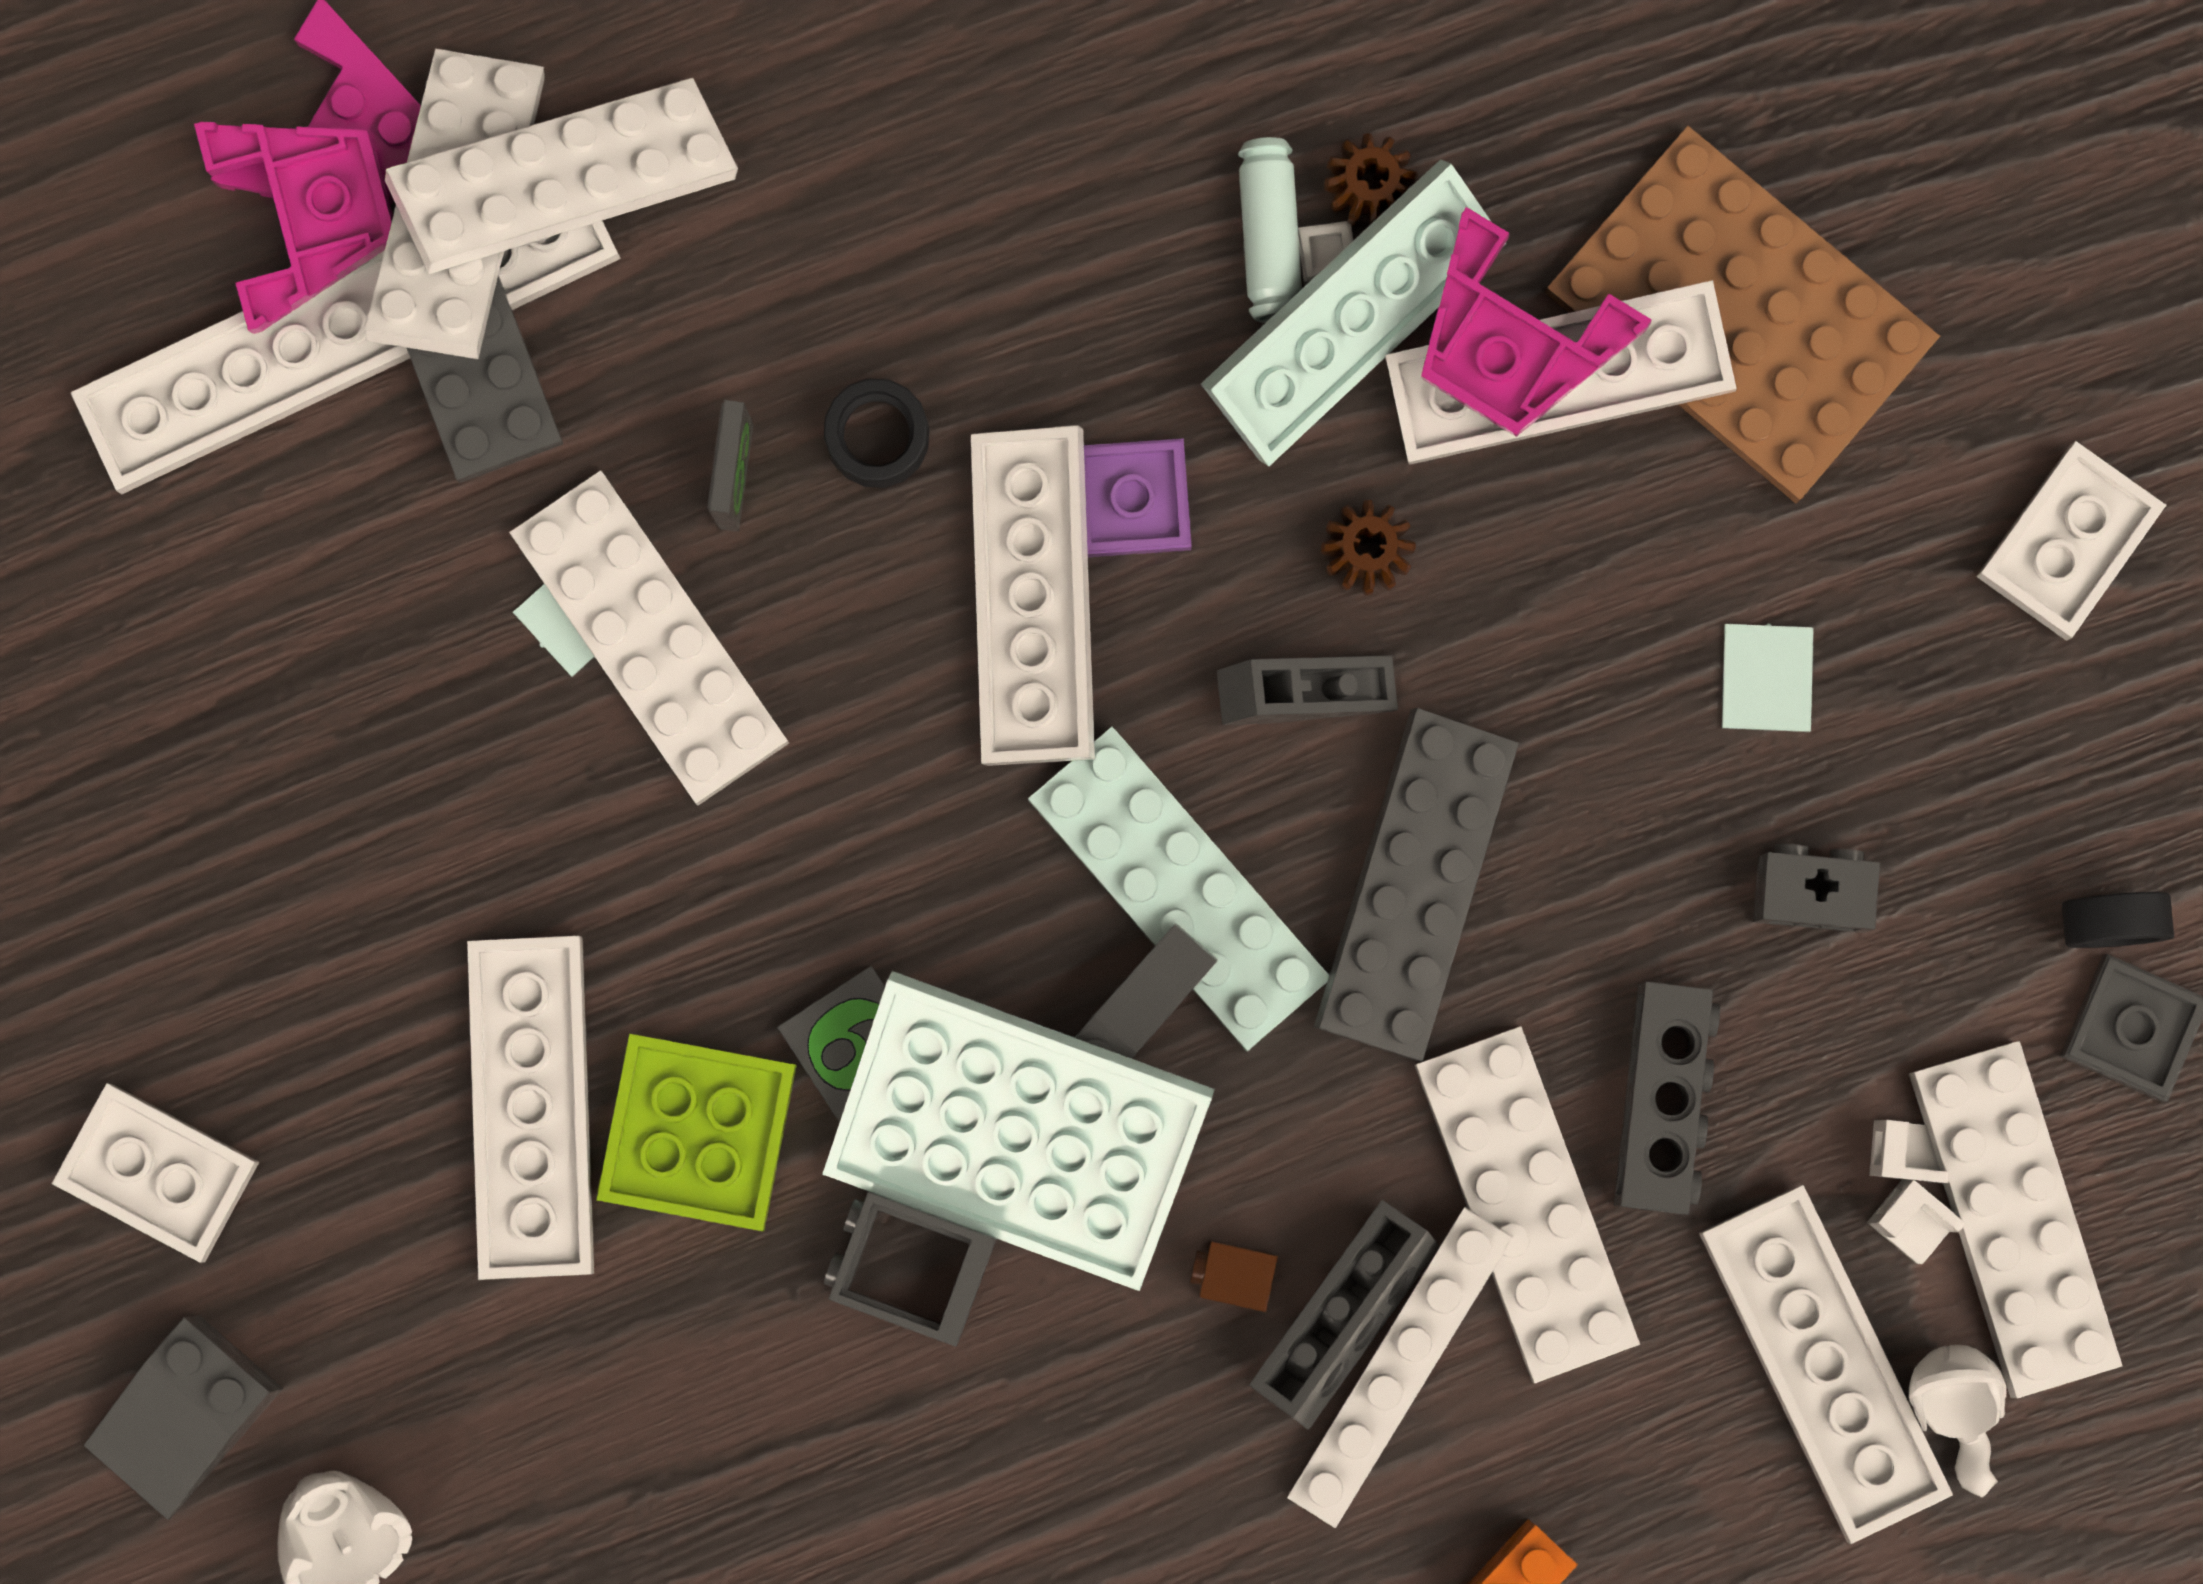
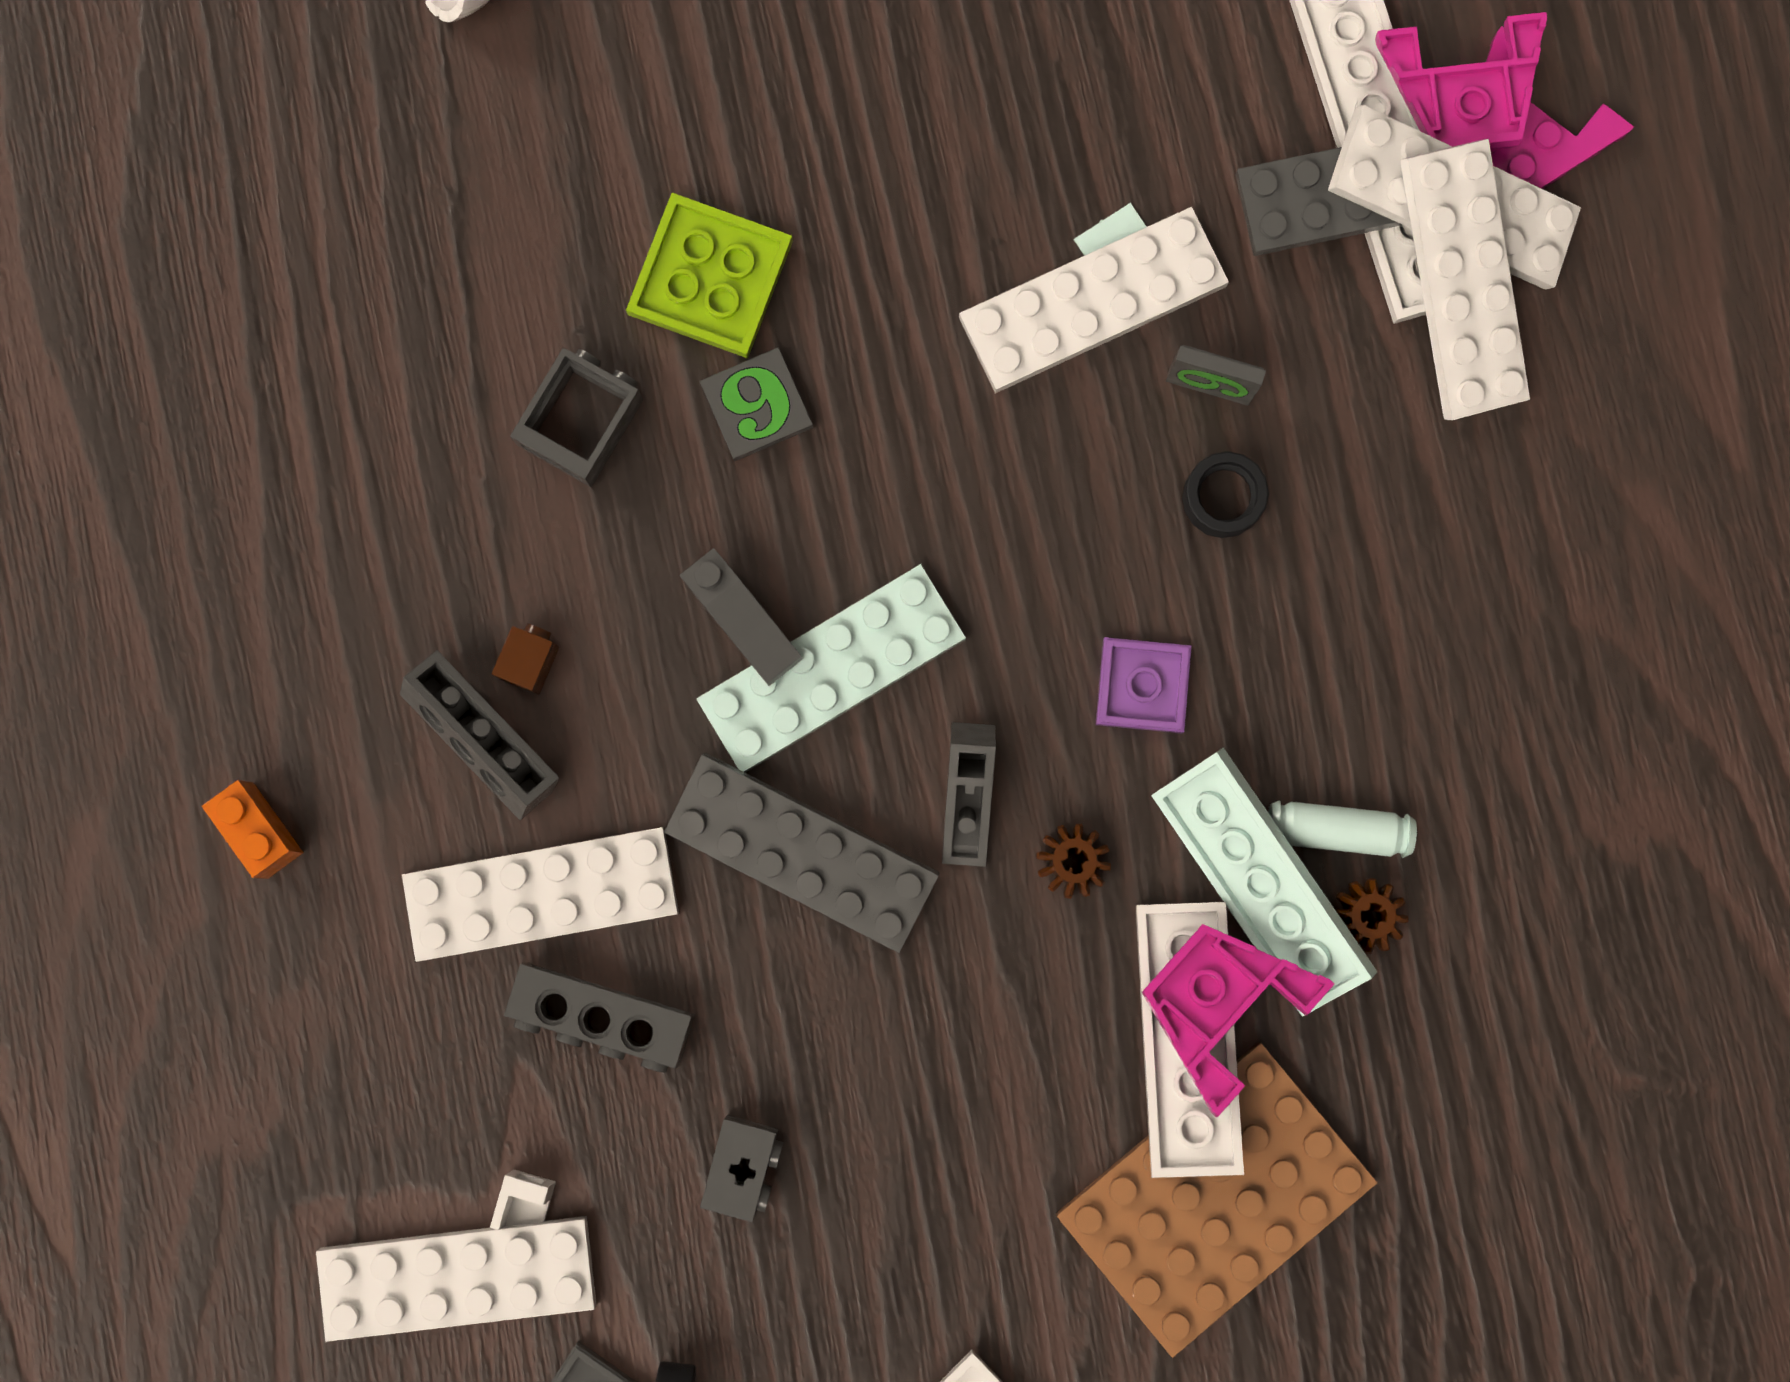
camera: 105 degrees right, 0 degrees up
(530, 1107) = (750, 156): white plate -> none
(1017, 1130) = (663, 508): light aqua plate -> none
(1032, 596) = (1078, 592): white plate -> none
(1320, 246) = (1323, 867): white tile -> none
(1400, 1367) = (434, 773): white plate -> none
(1767, 677) = (919, 1163): light aqua window -> none
(1825, 1364) = (372, 1104): white plate -> none
(1914, 1220) = (469, 1196): white panel -> none
(1961, 1398) = (324, 1207): white piece -> none

